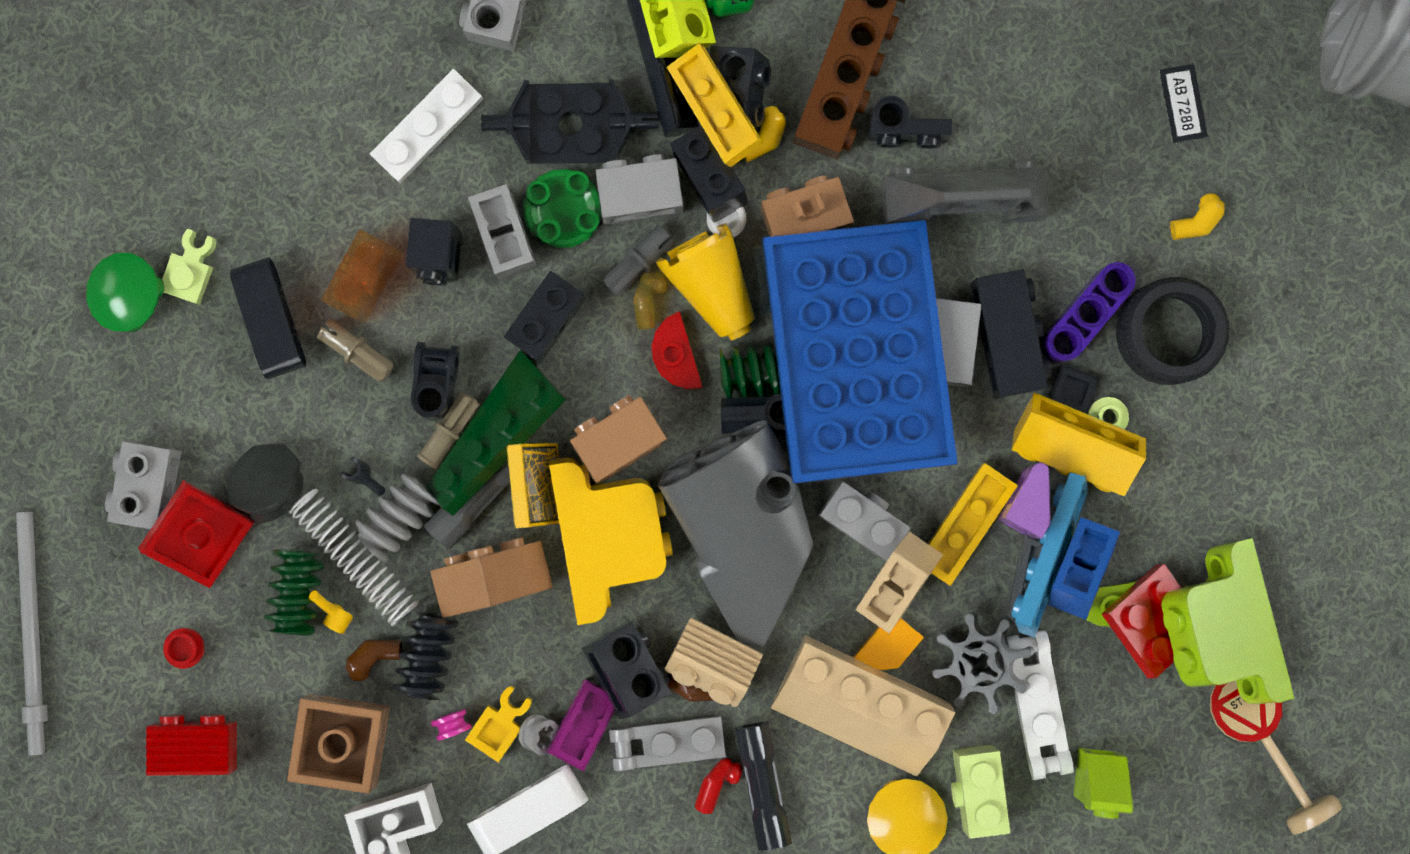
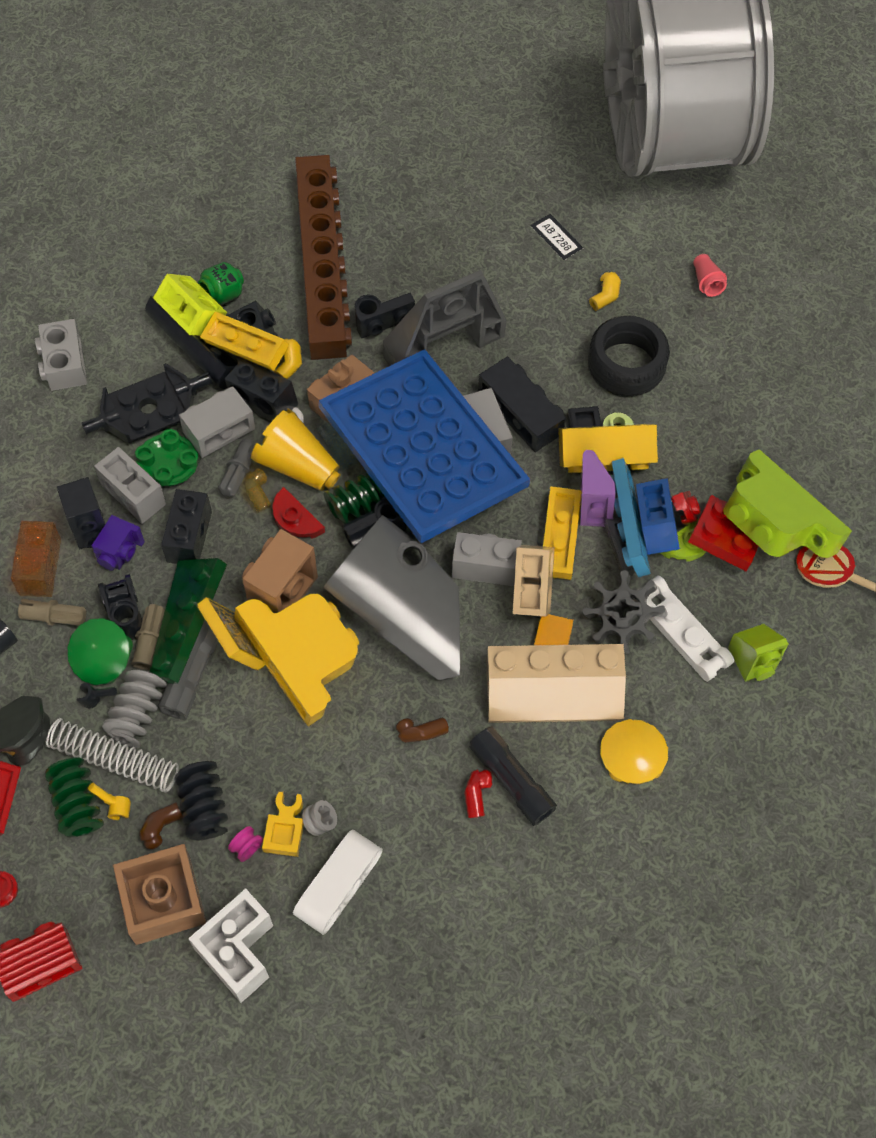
camera: 25 degrees left, 25 degrees down
(387, 427) = (99, 651): none -> green dish
(426, 126) = (43, 451): white plate -> none
(458, 299) = (117, 543): none -> dark purple brick
(490, 577) = (224, 714): medium nougat brick -> none
(582, 726) = (351, 796): magenta plate -> none
(617, 675) = (364, 737): black brick -> none
(668, 742) = (424, 781): light grey plate -> none
(713, 663) = (427, 700): tan brick -> none
(980, 791) = (675, 700): yellowish green brick -> none
(1101, 299) = (569, 357): dark purple beam -> none
(1125, 566) = (688, 504): none -> red plate
(1338, 261) = (709, 276): none -> coral cone

